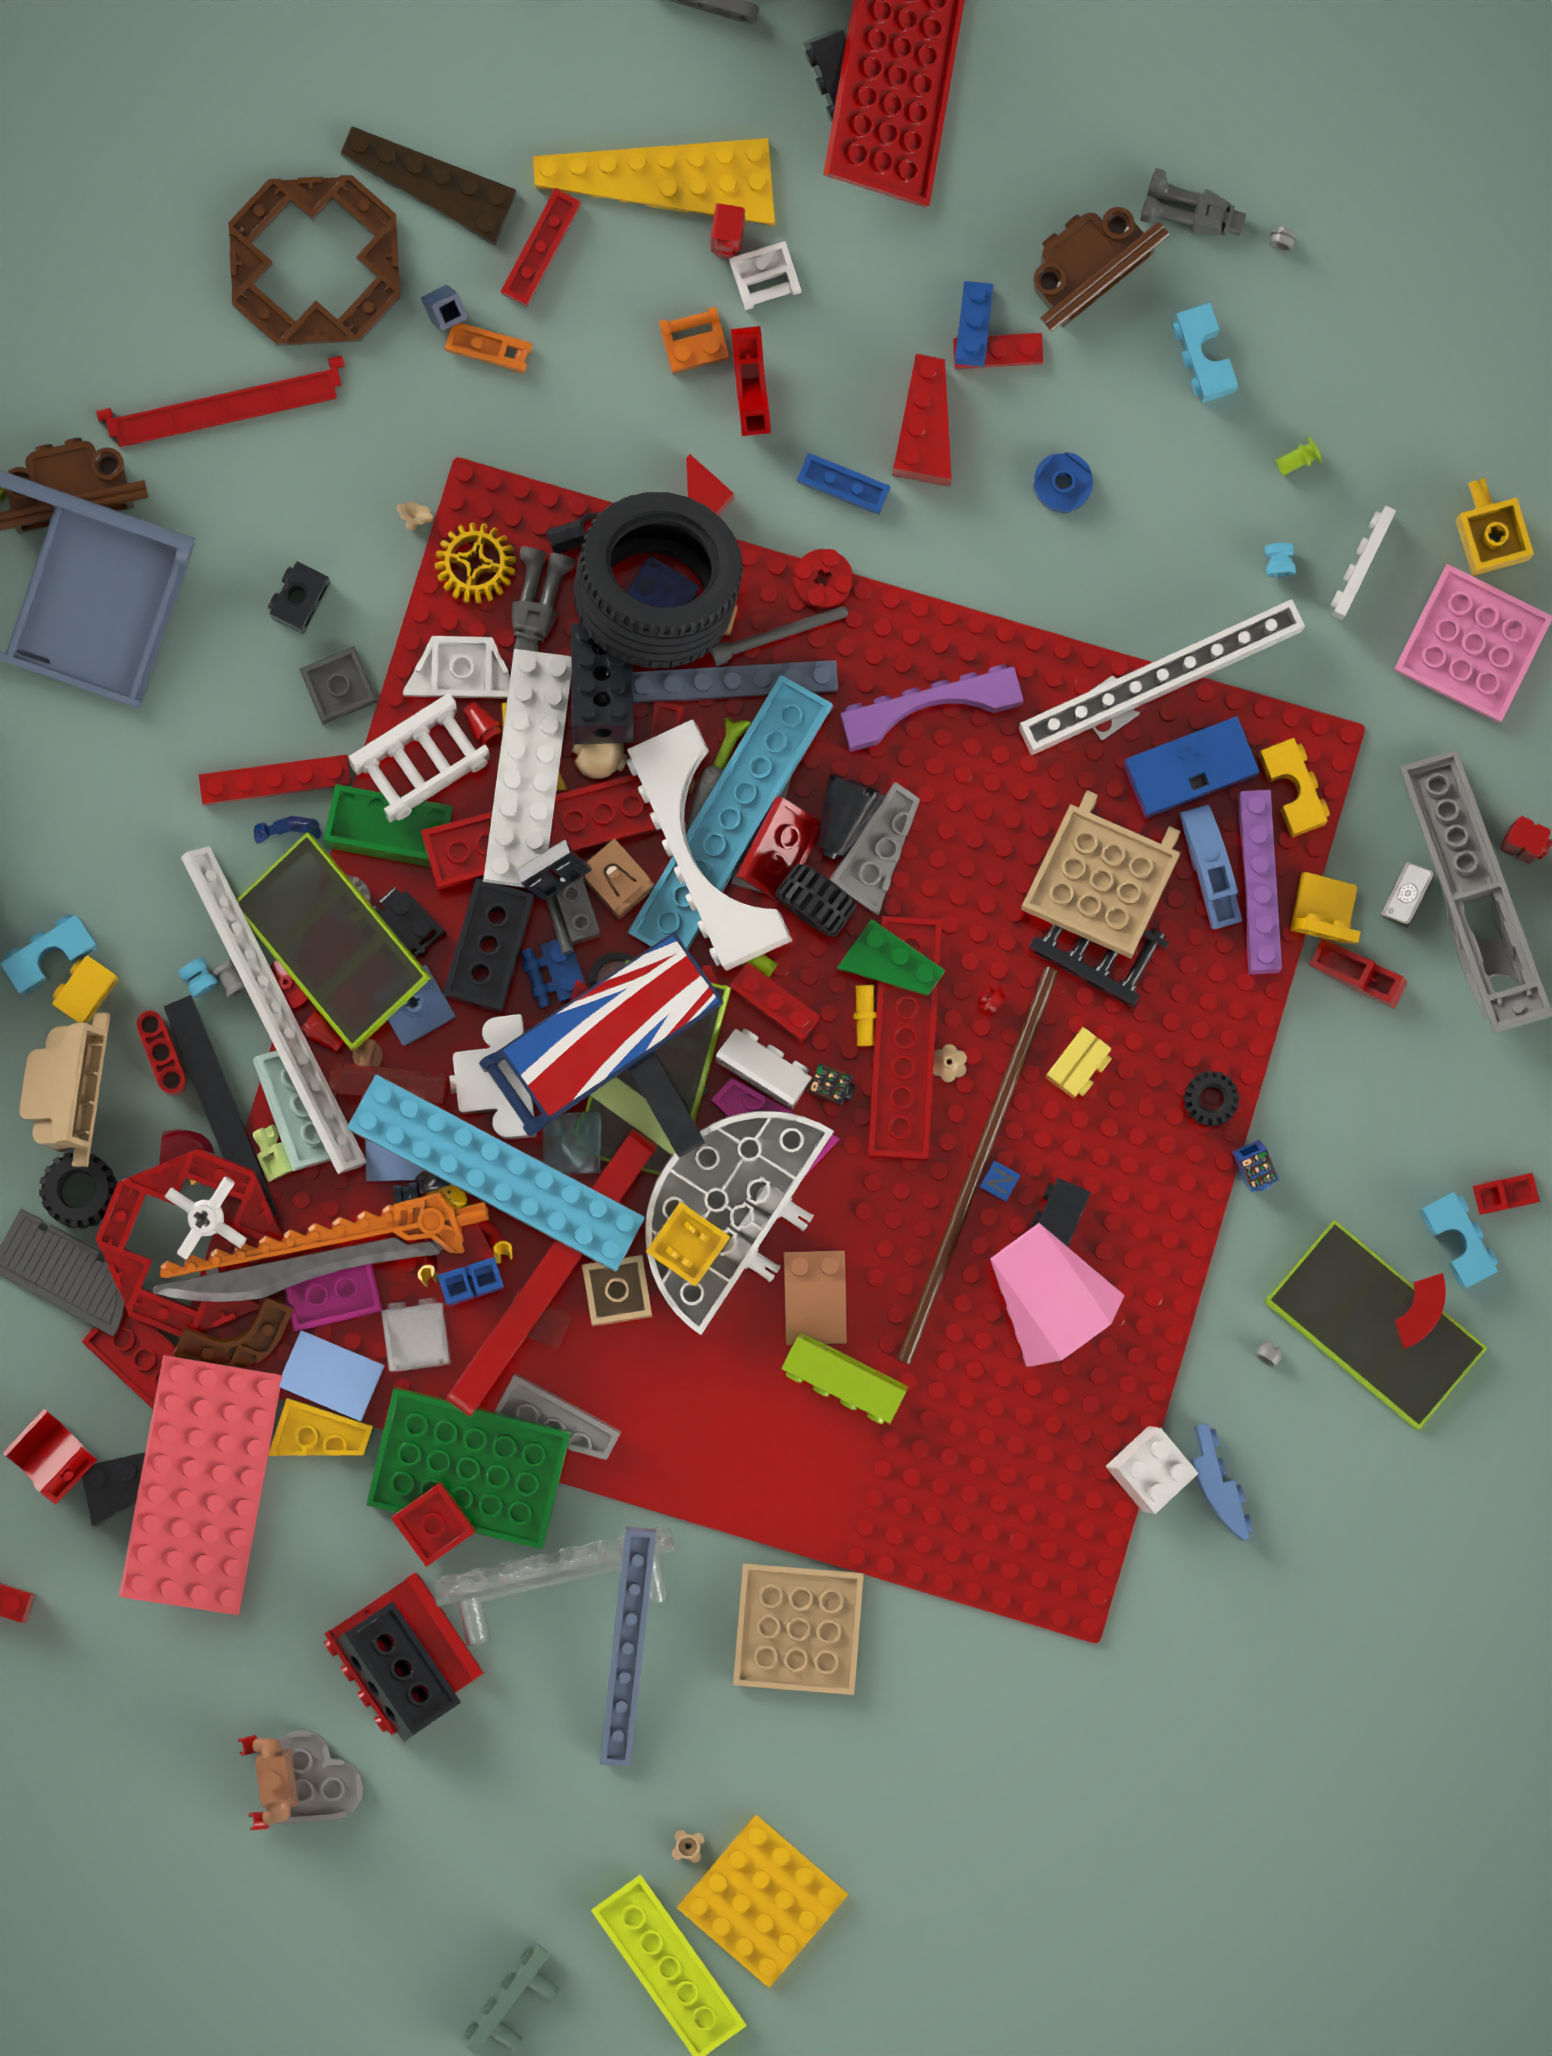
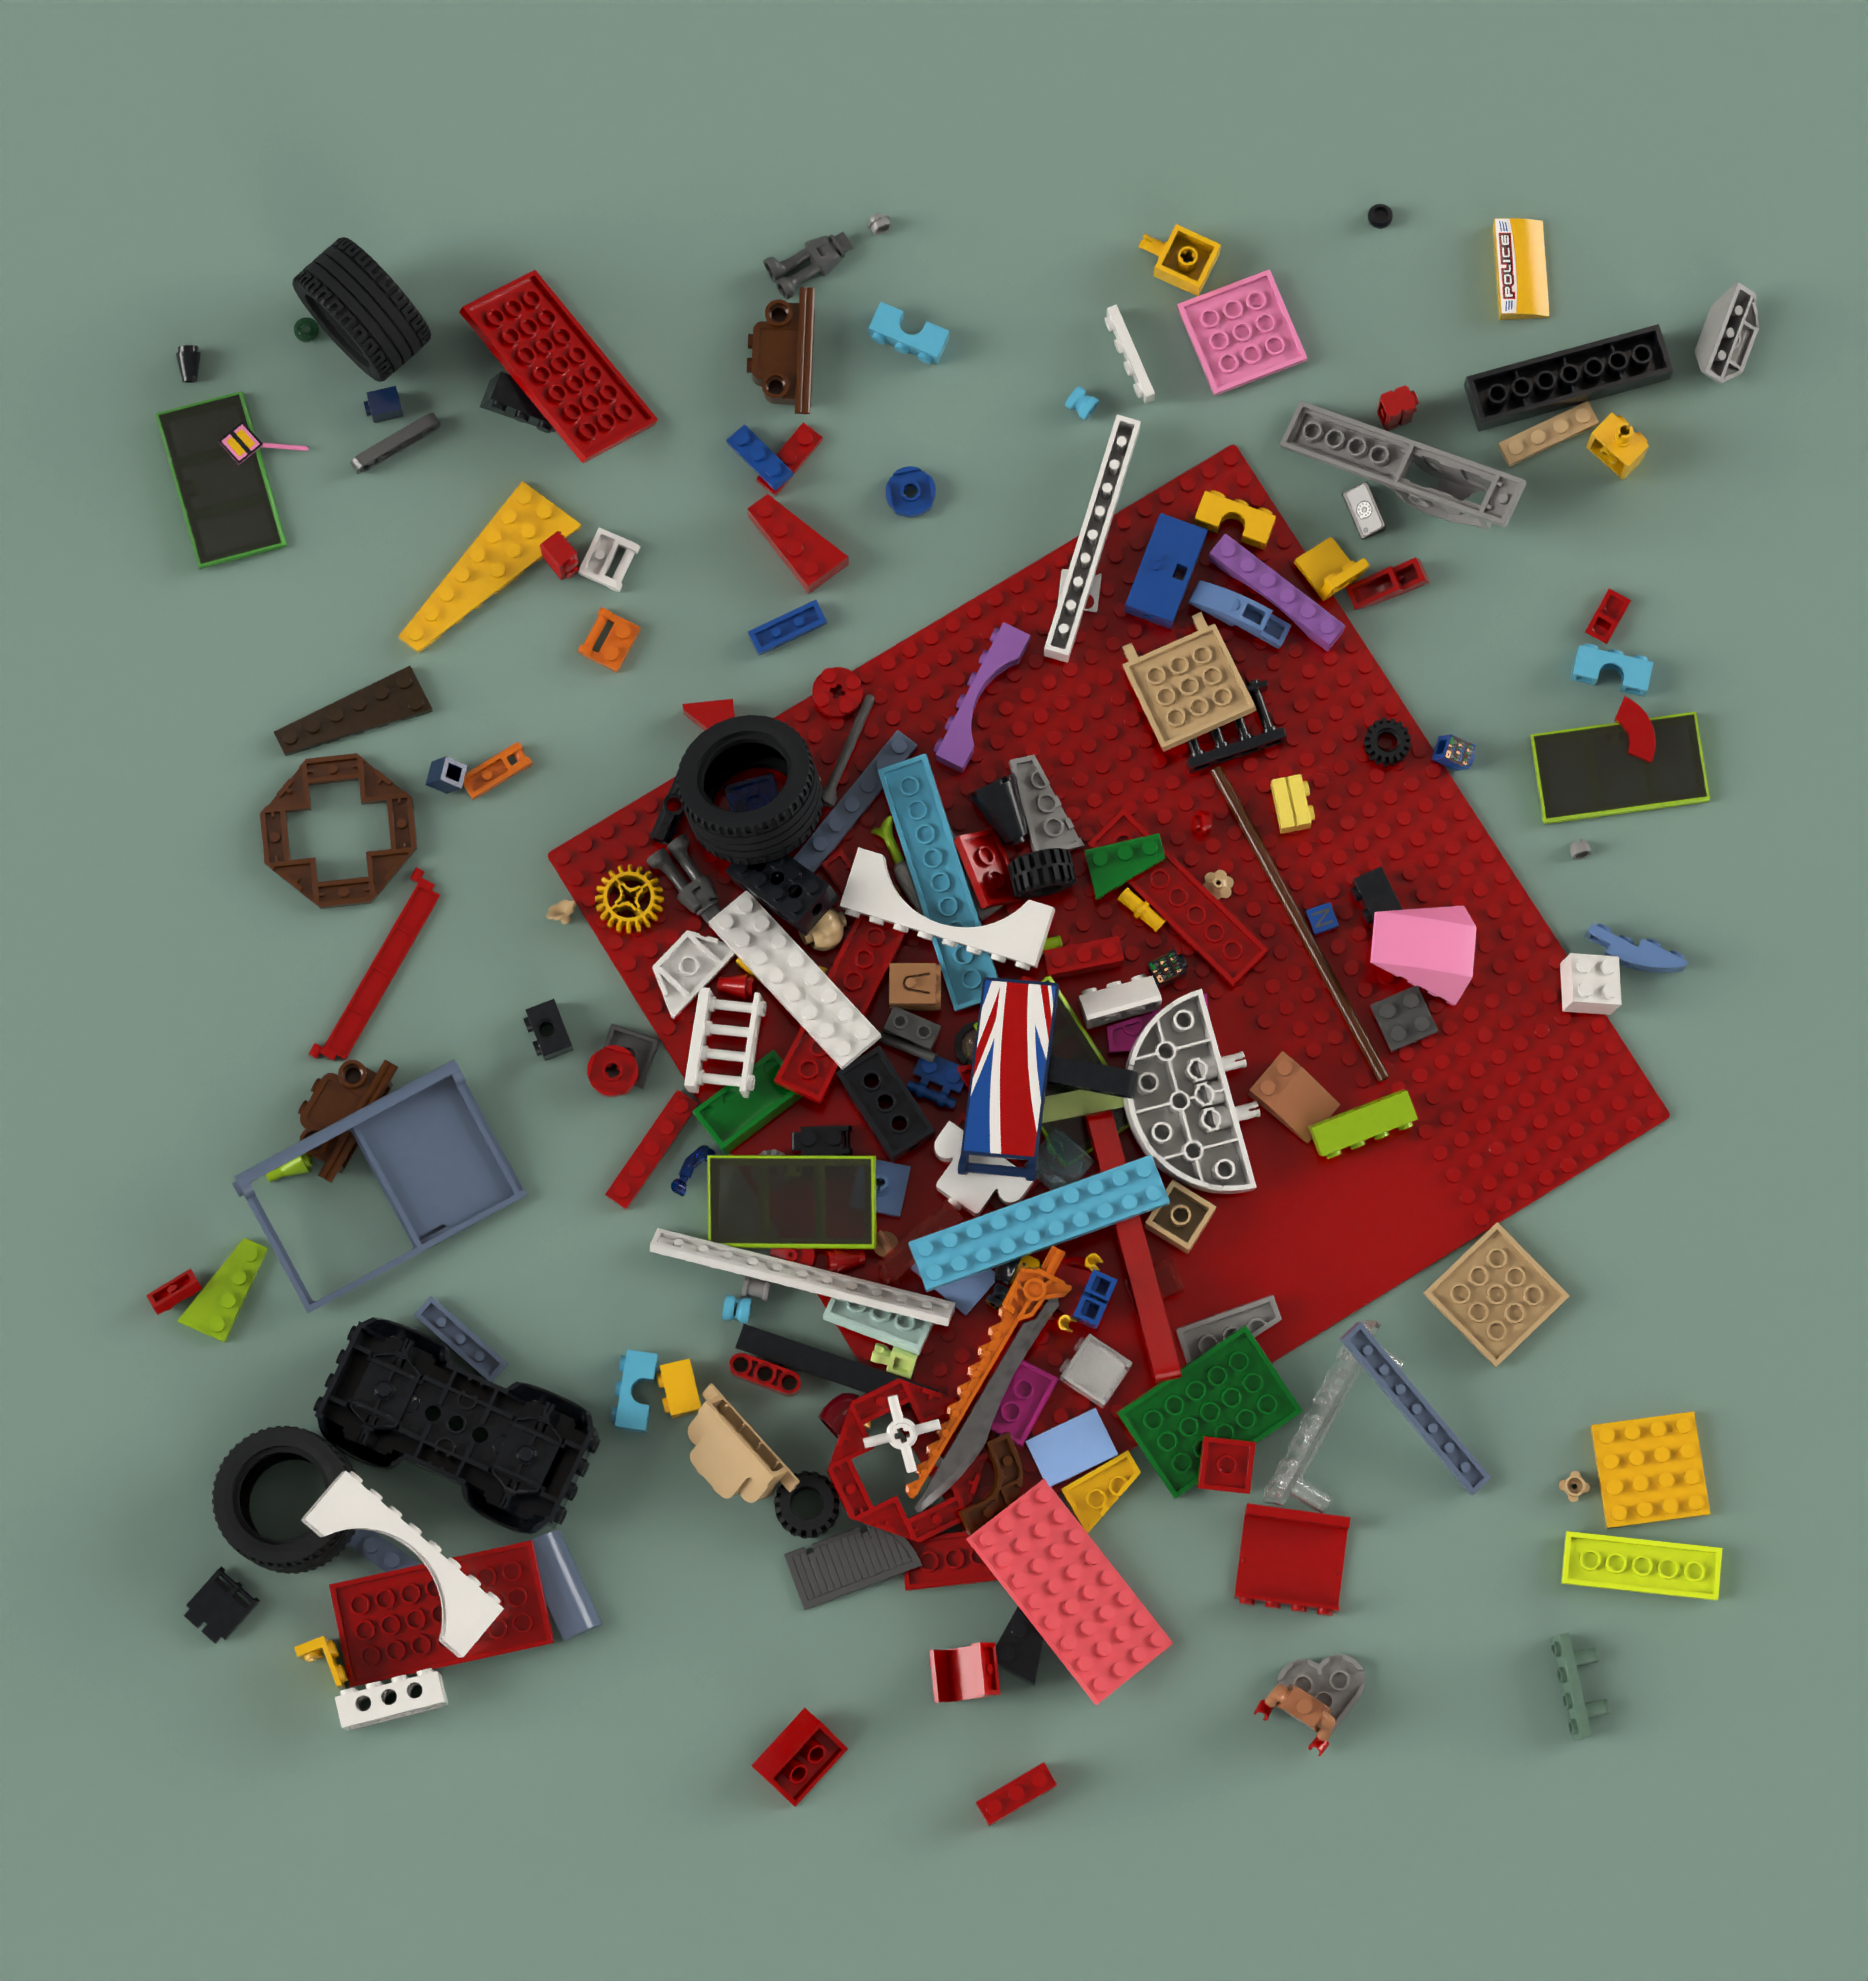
camera: 45 degrees left, 5 degrees down
(326, 691) = (604, 1059): none -> red plate
(409, 1655) = (1302, 1569): black brick -> none
(540, 247) = (462, 682): red plate -> none
(562, 861) = (876, 1005): black piece -> none
(687, 1244) = (1192, 1142): yellow plate -> none
(750, 381) = (669, 627): red arch -> none
(974, 1332) = (1404, 1018): none -> dark grey plate
(1302, 456) = (1027, 334): lime pin -> none

